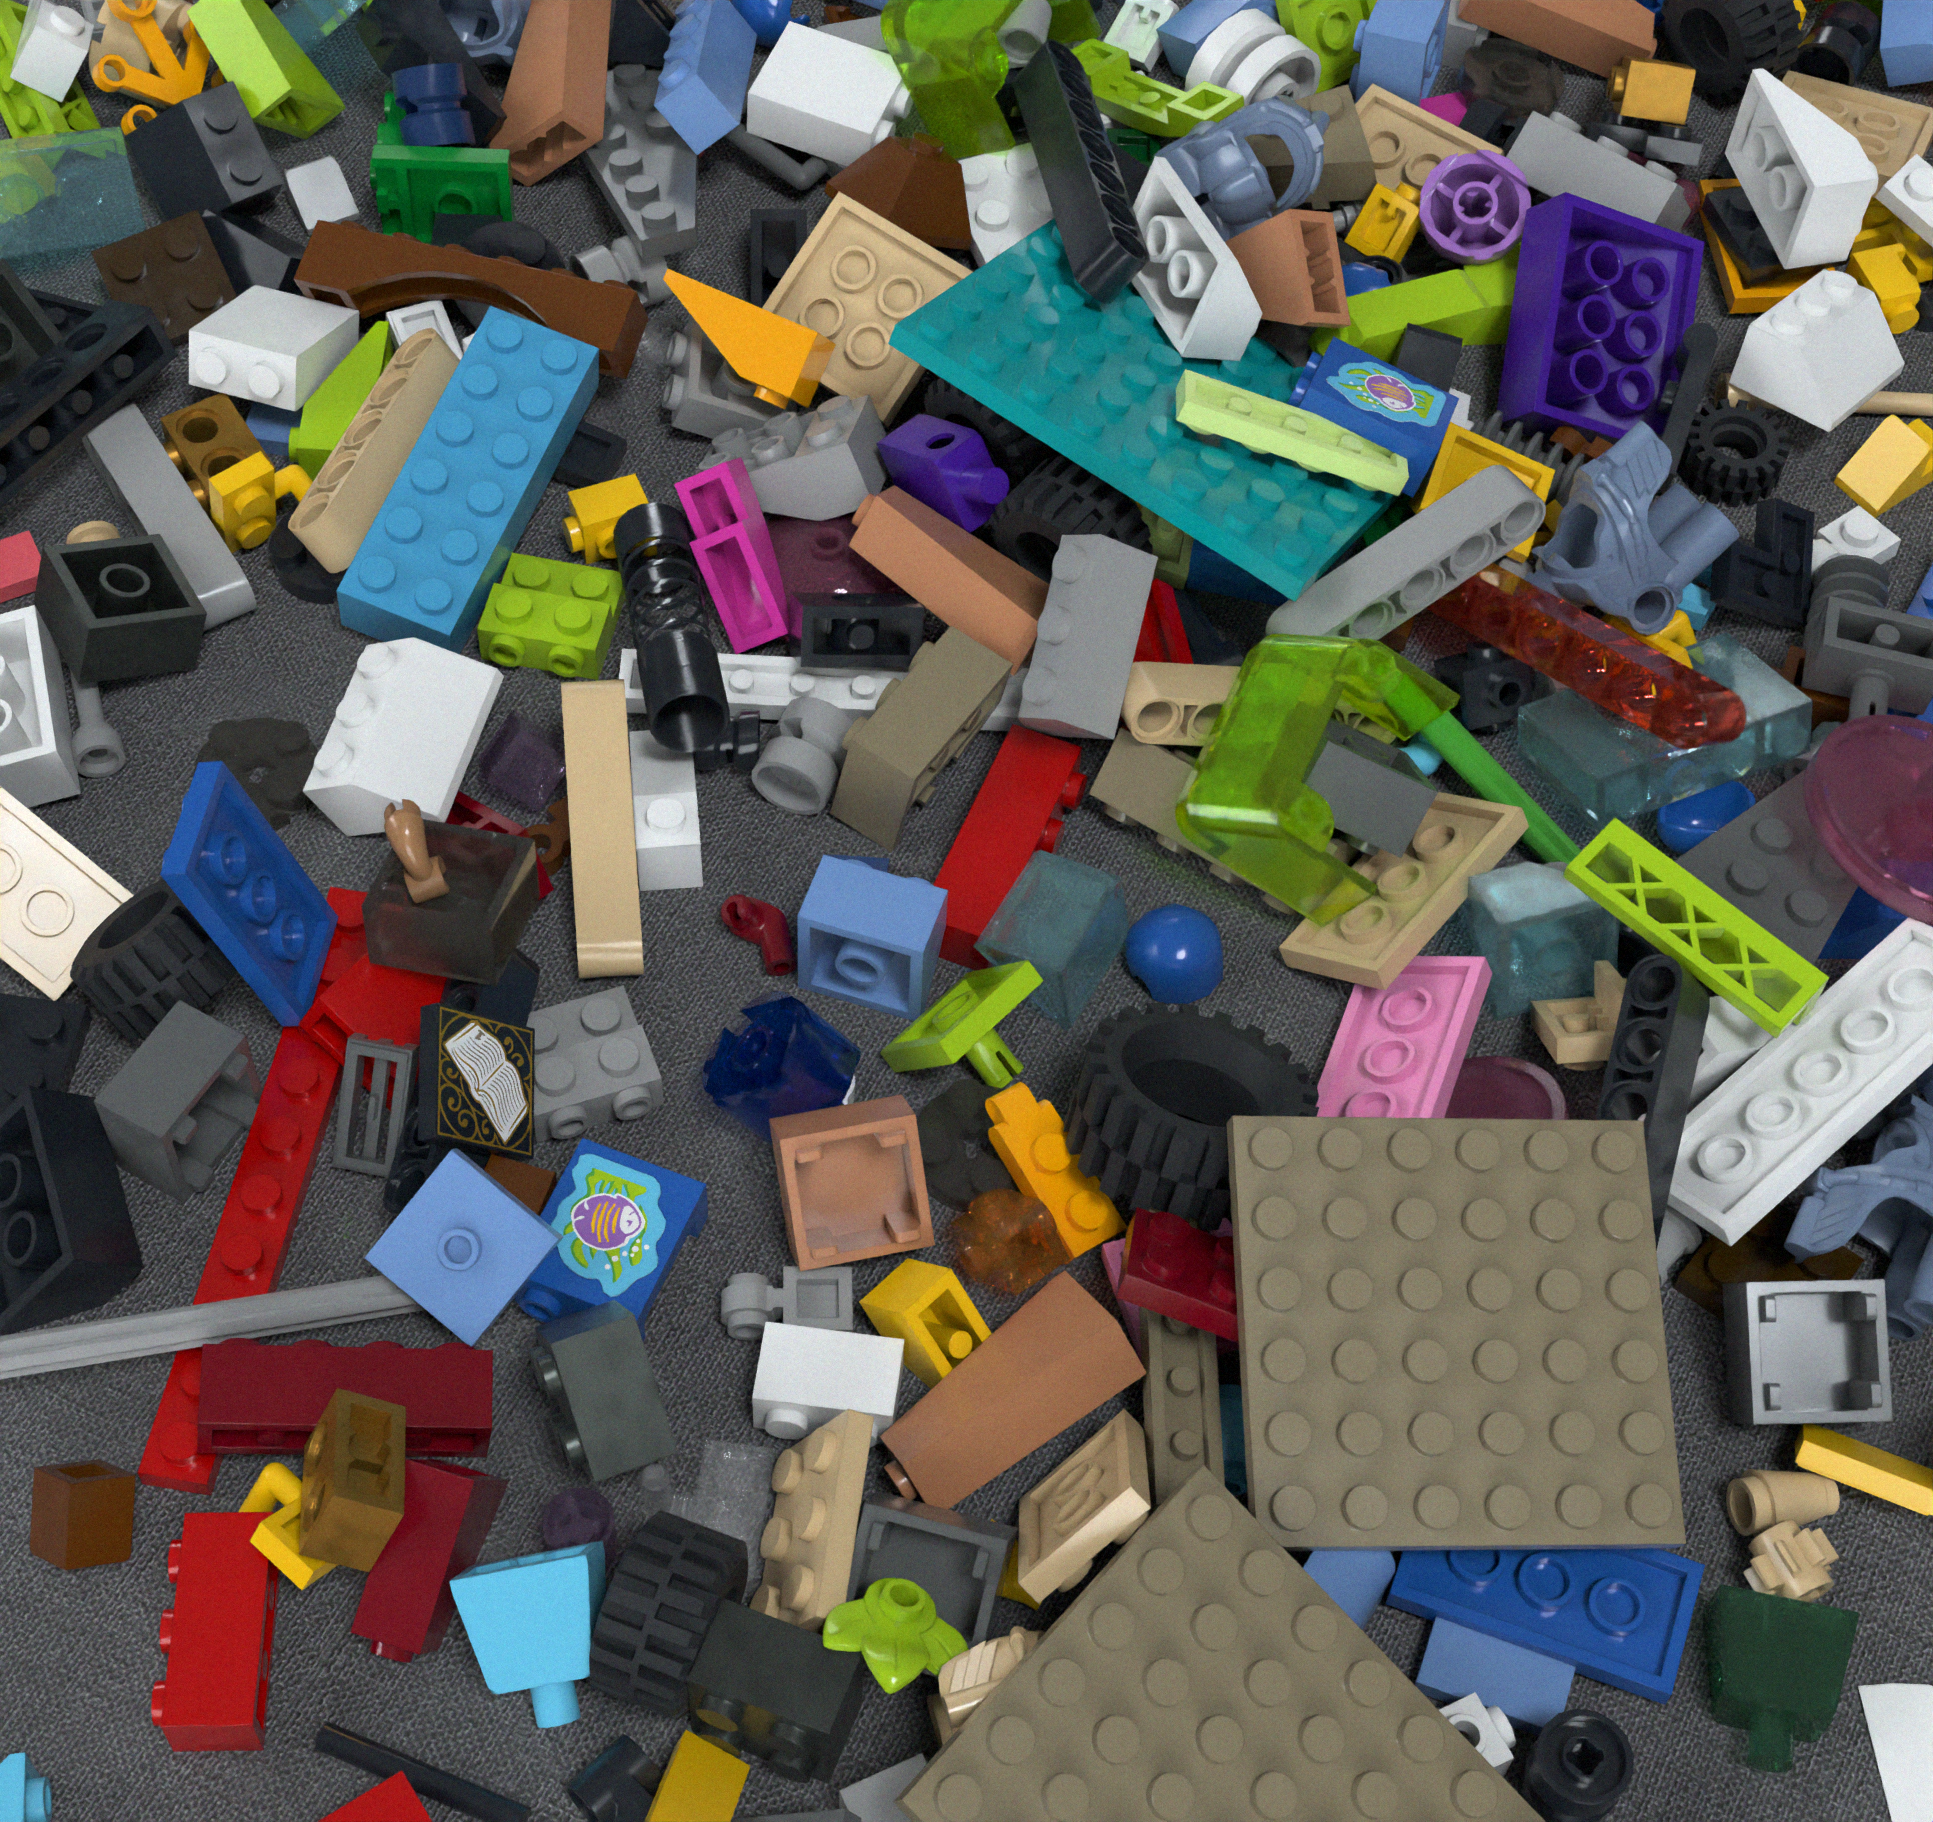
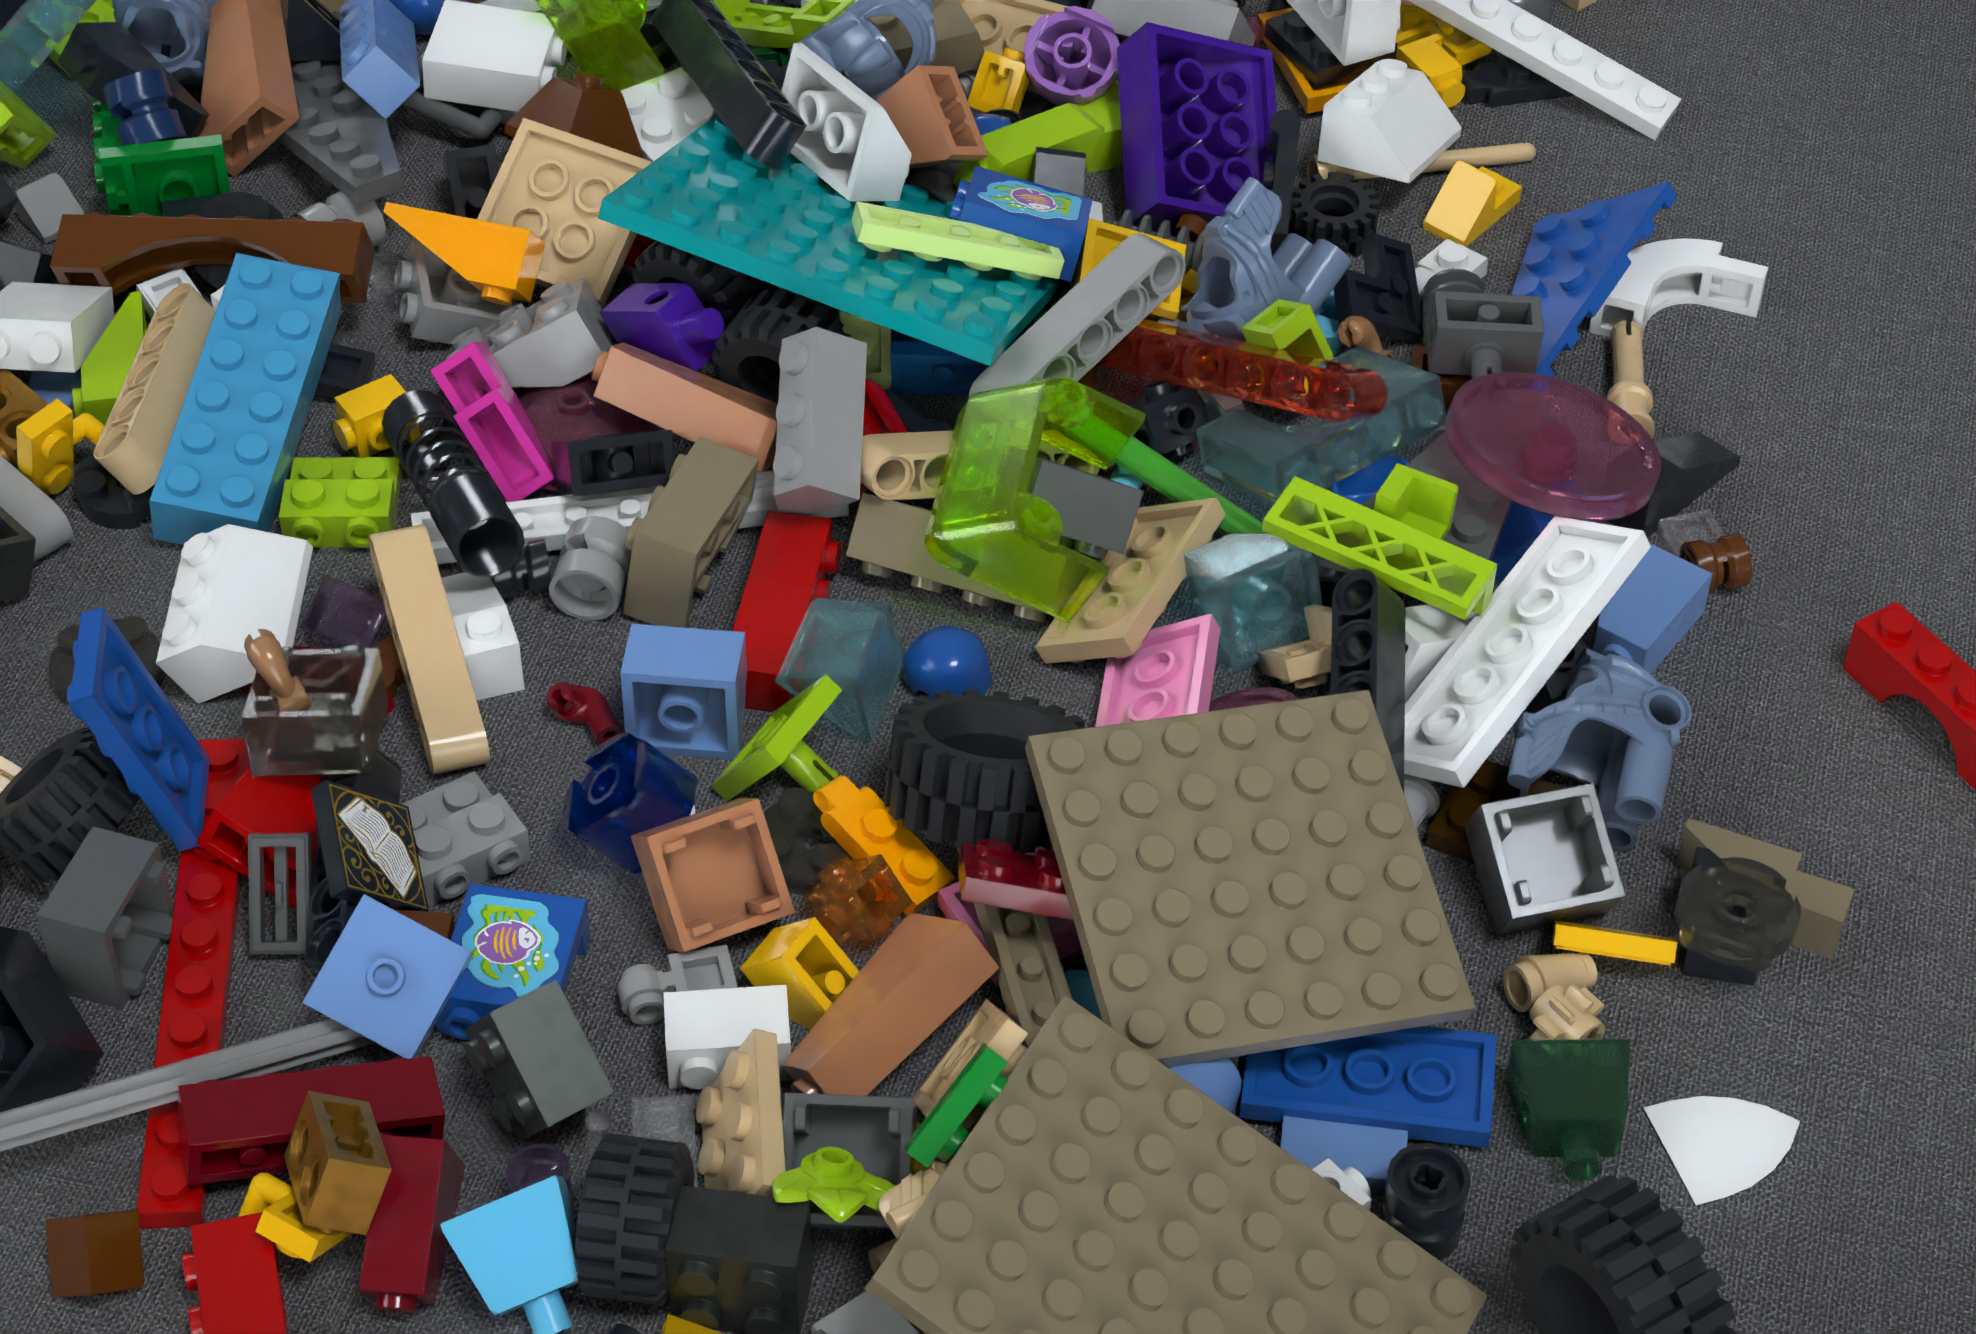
camera: 10 degrees left, 10 degrees down
(1030, 1598) = (942, 1129): none -> green plate
(1647, 611) = (1289, 328): none -> lime panel
(1735, 619) = (1362, 333): none -> medium nougat arm
(1751, 874) = (1418, 500): none -> lime panel

